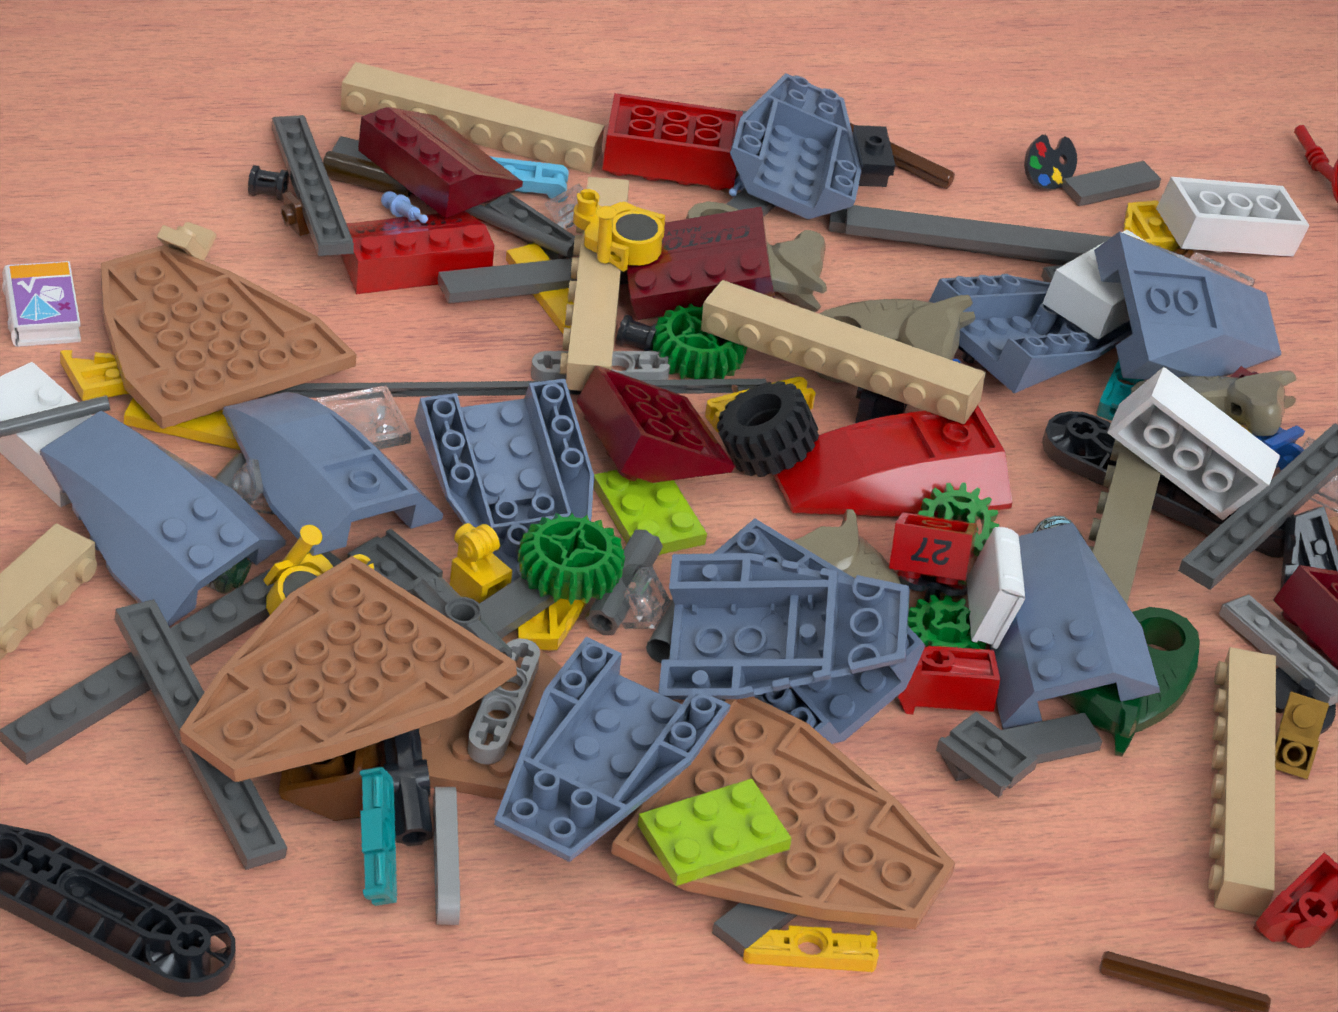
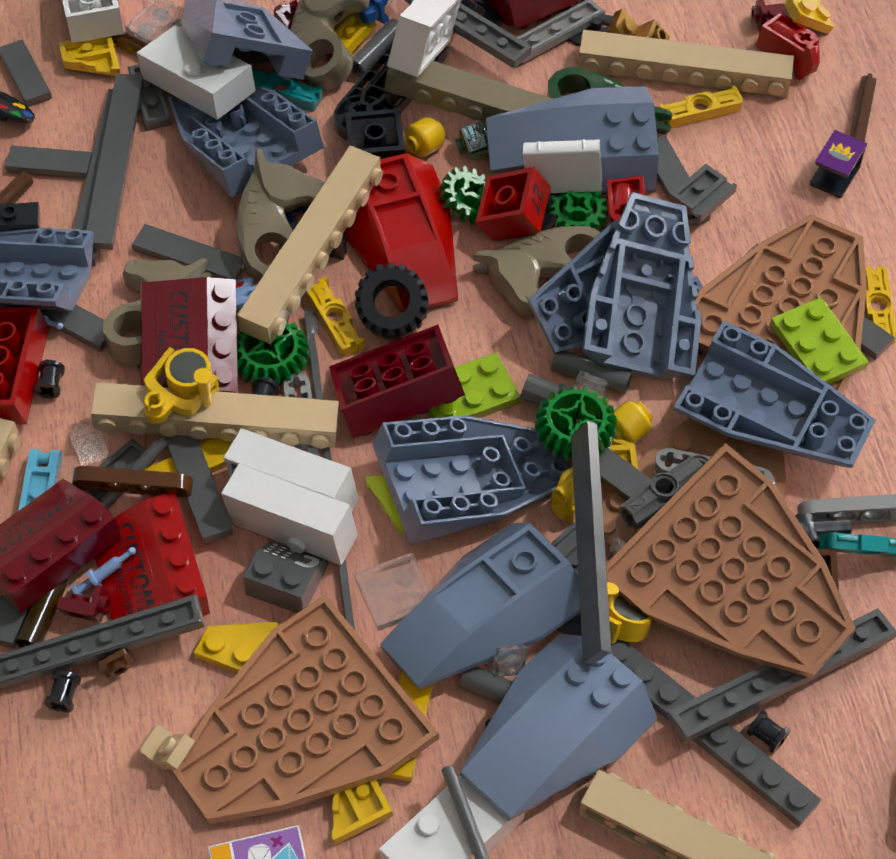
camera: 85 degrees left, 15 degrees up
(126, 715) = (768, 731): none -> black bush
(313, 295) = (232, 644): none -> yellow wing
(366, 197) = (80, 607): none -> dark red bracket
(377, 520) = (590, 544): none -> dark grey tile
(393, 336) = (283, 576): none -> dark grey slope
(457, 326) = (290, 514): none -> white brick
(505, 330) = (292, 466): none -> white brick
(510, 220) = (132, 481): none -> reddish brown beam
(594, 627) = (632, 421): none -> yellow head
(660, 184) = (49, 379): none -> black bush
(855, 280) = (185, 251): none -> dark grey tile
(976, 192) = (48, 162): none -> dark grey tile
(1035, 438) = (376, 132): none -> black slope
(1056, 494) = (424, 137): none -> yellow head
(1068, 923) = (838, 163): none -> piece
(1176, 814) = (717, 105): none -> yellow piece

